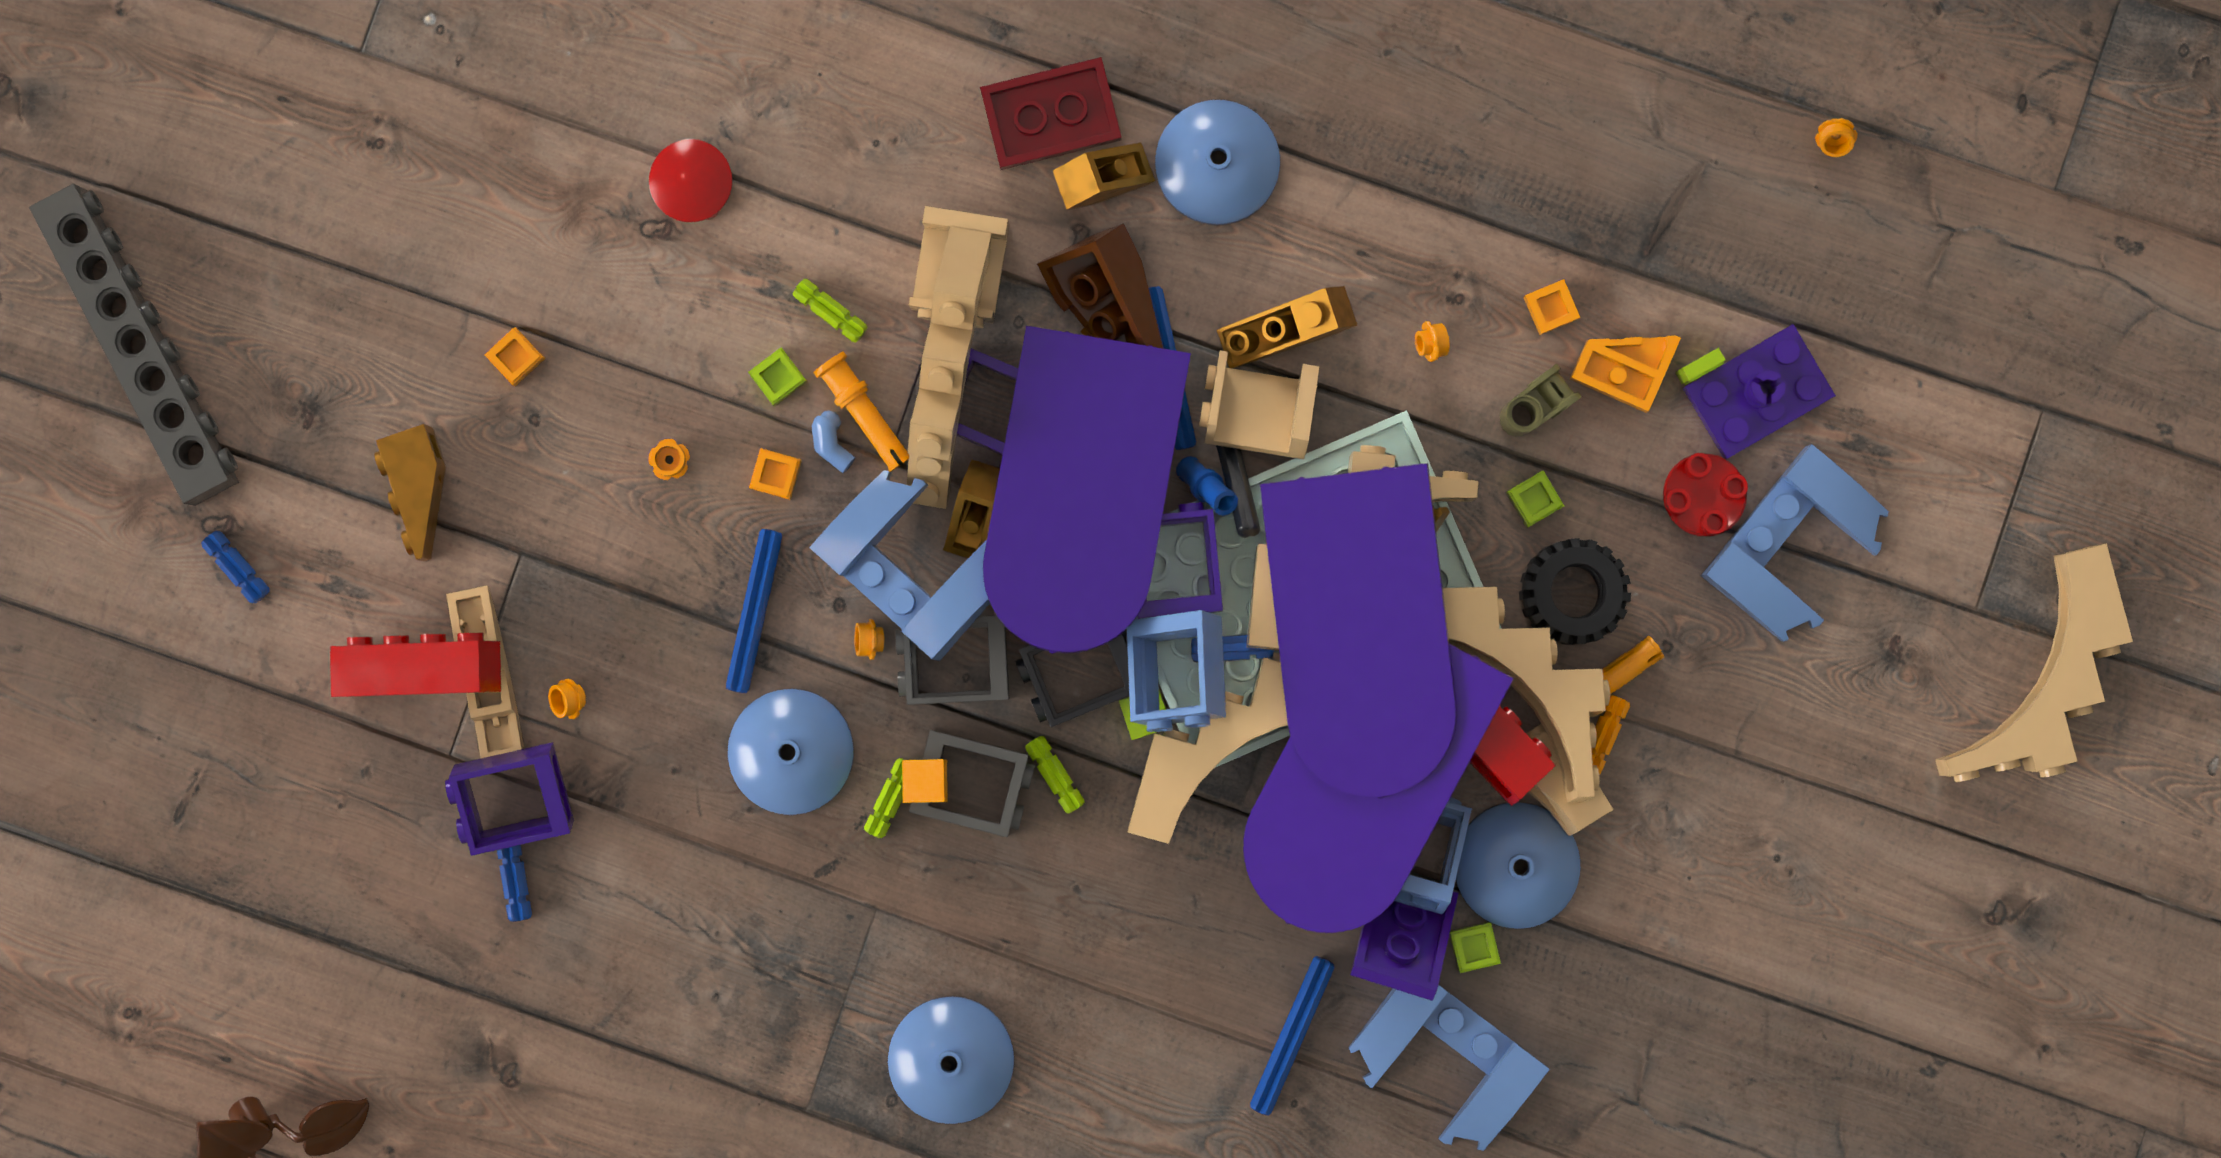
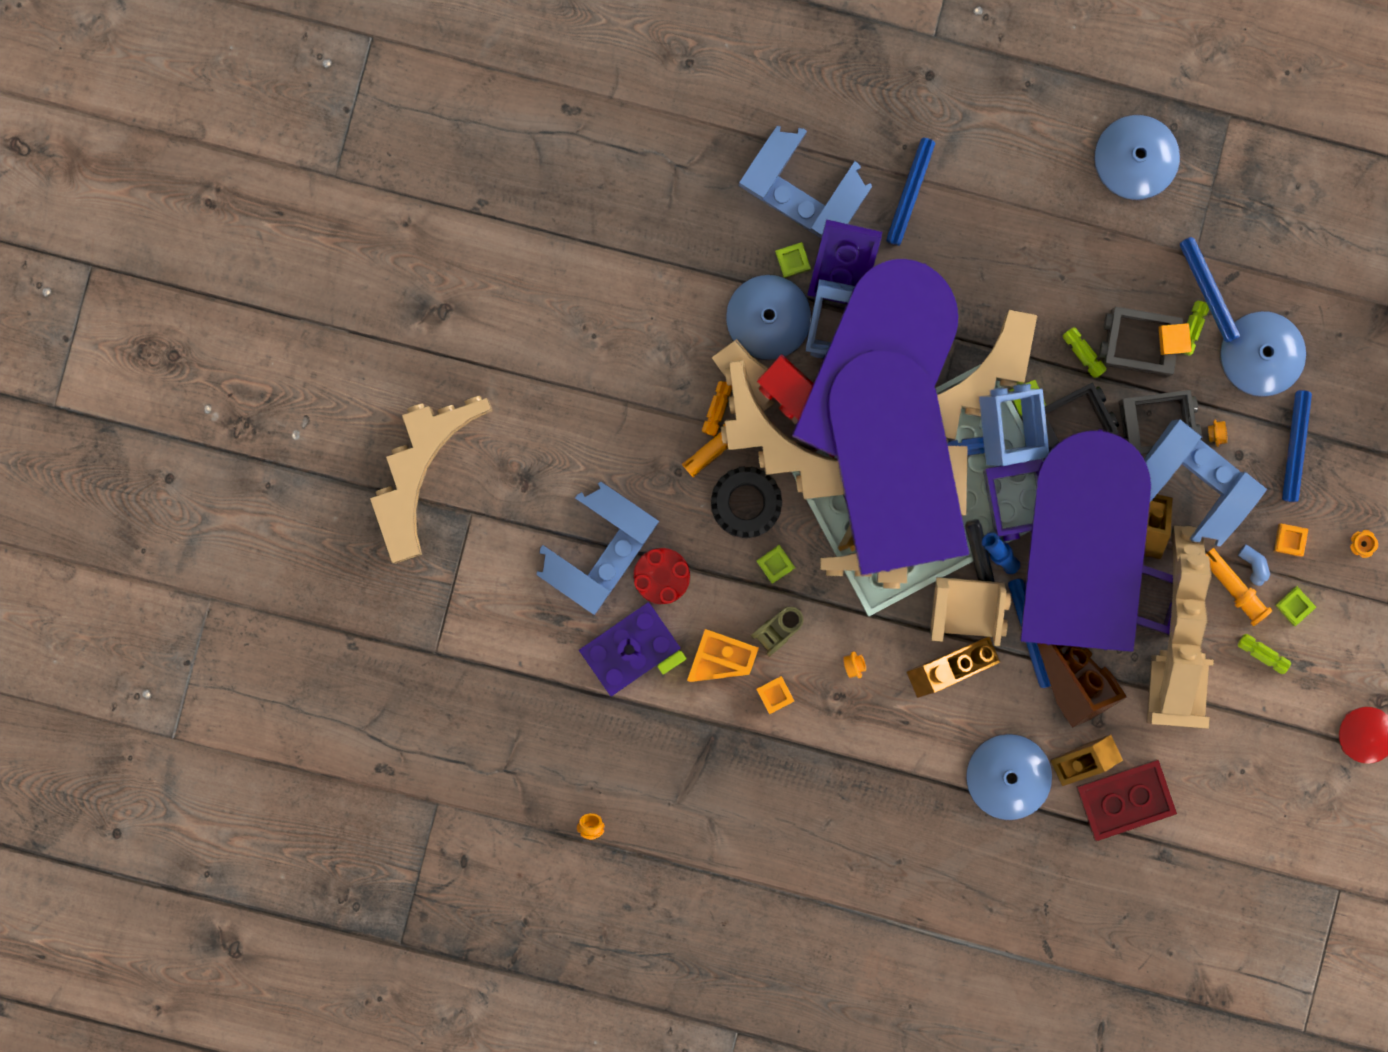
camera: 175 degrees right, 0 degrees up
(863, 852) = (1209, 289): none -> blue axle

